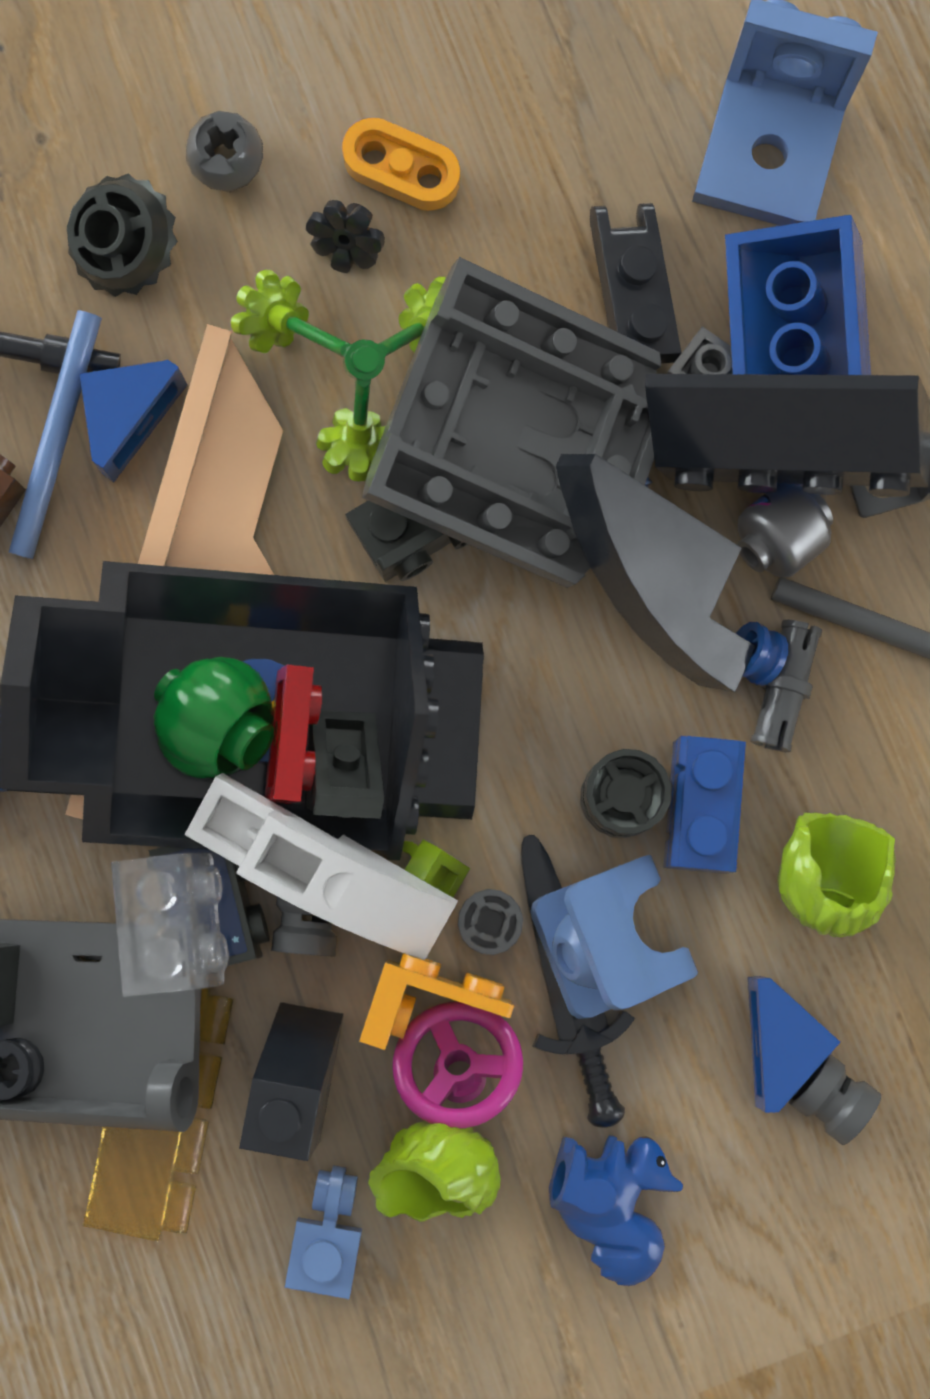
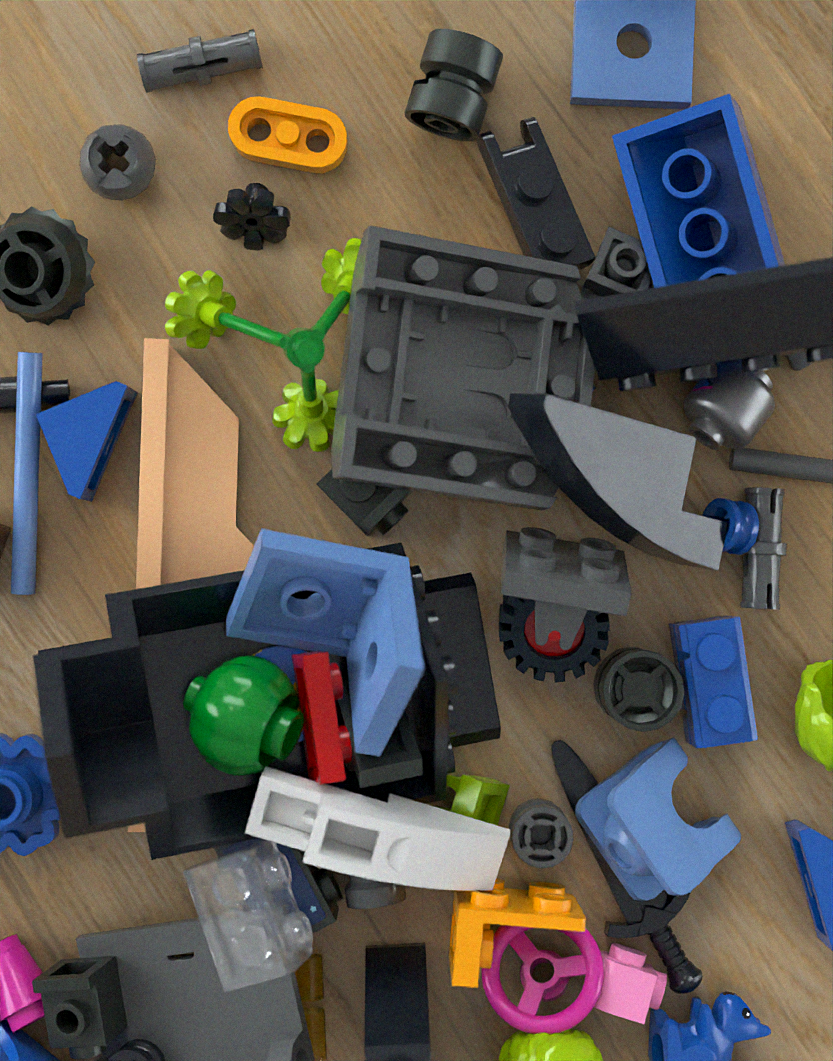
camera: 15 degrees left, 5 degrees up
(293, 72) = (199, 60): none -> dark grey pin
(354, 645) = (358, 612): none -> medium blue bracket
(544, 1102) = (629, 984): none -> bright pink plate
(563, 688) = (559, 600): none -> dark grey plate
(583, 145) = (457, 74): none -> pearl dark grey wheel

